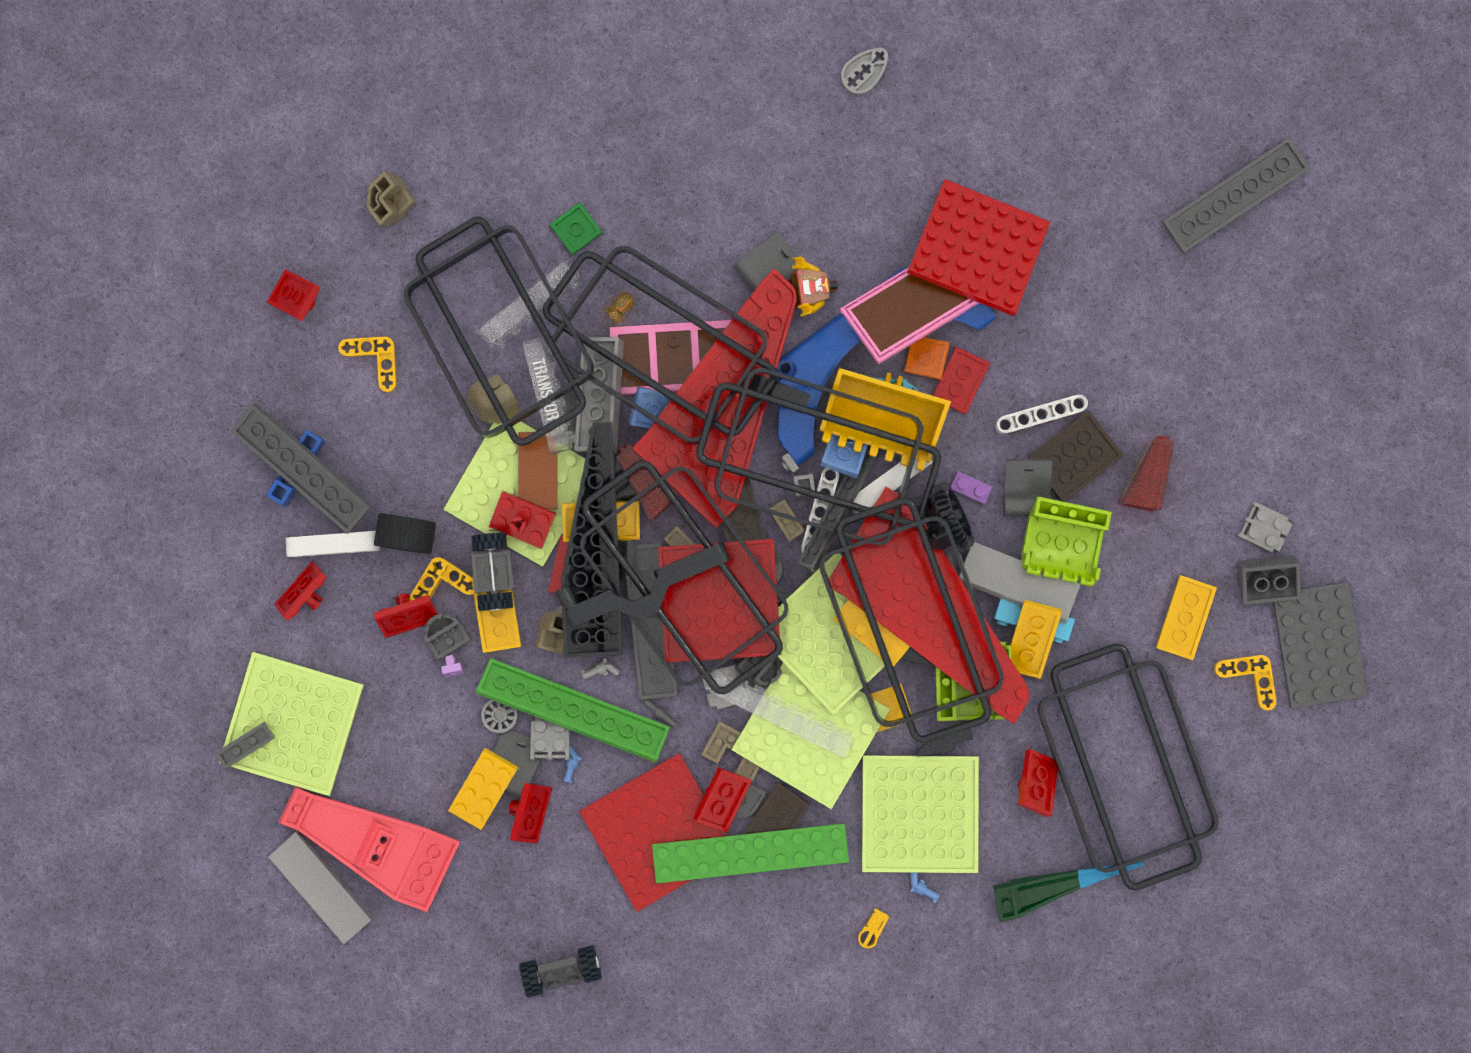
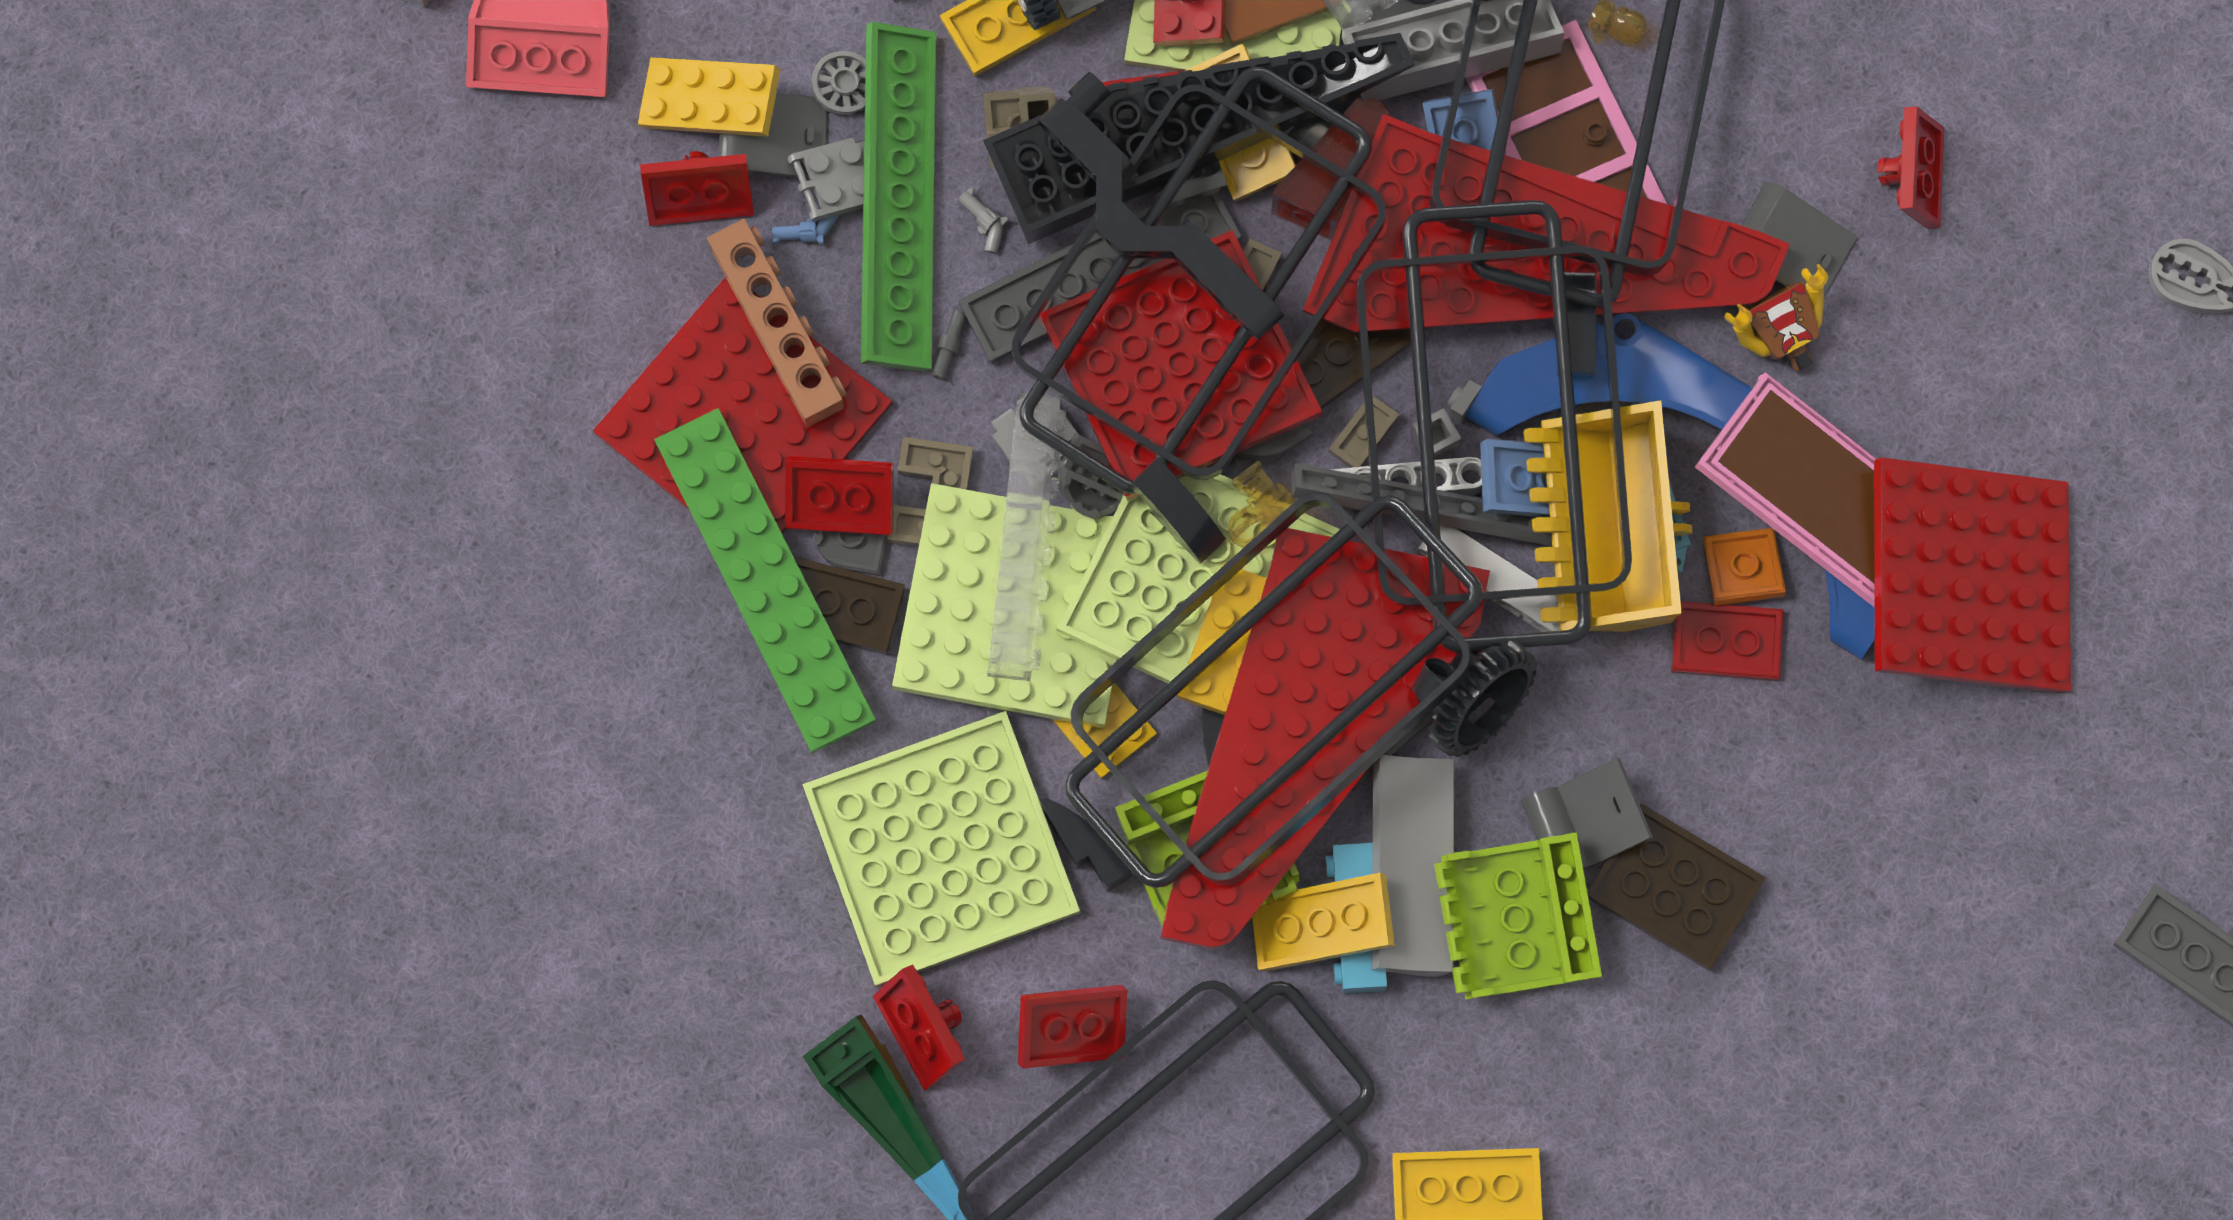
camera: 75 degrees right, 10 degrees down
(560, 972) = (444, 337): plate -> none
(570, 810) = (811, 403): none -> nougat brick
(756, 187) = (1917, 168): none -> red plate
(798, 632) = (1177, 510): none -> black slope
(808, 584) = (1266, 500): none -> clear yellow piece
(874, 925) = (716, 843): yellow piece -> none
(921, 888) = (811, 898): medium blue piece -> none
(971, 487) = (1546, 727): medium lavender plate -> none
(1009, 857) = (921, 1026): none -> red plate
(1049, 409) = (1722, 781): white beam -> none
(1149, 478) = (1688, 1023): clear red slope -> none

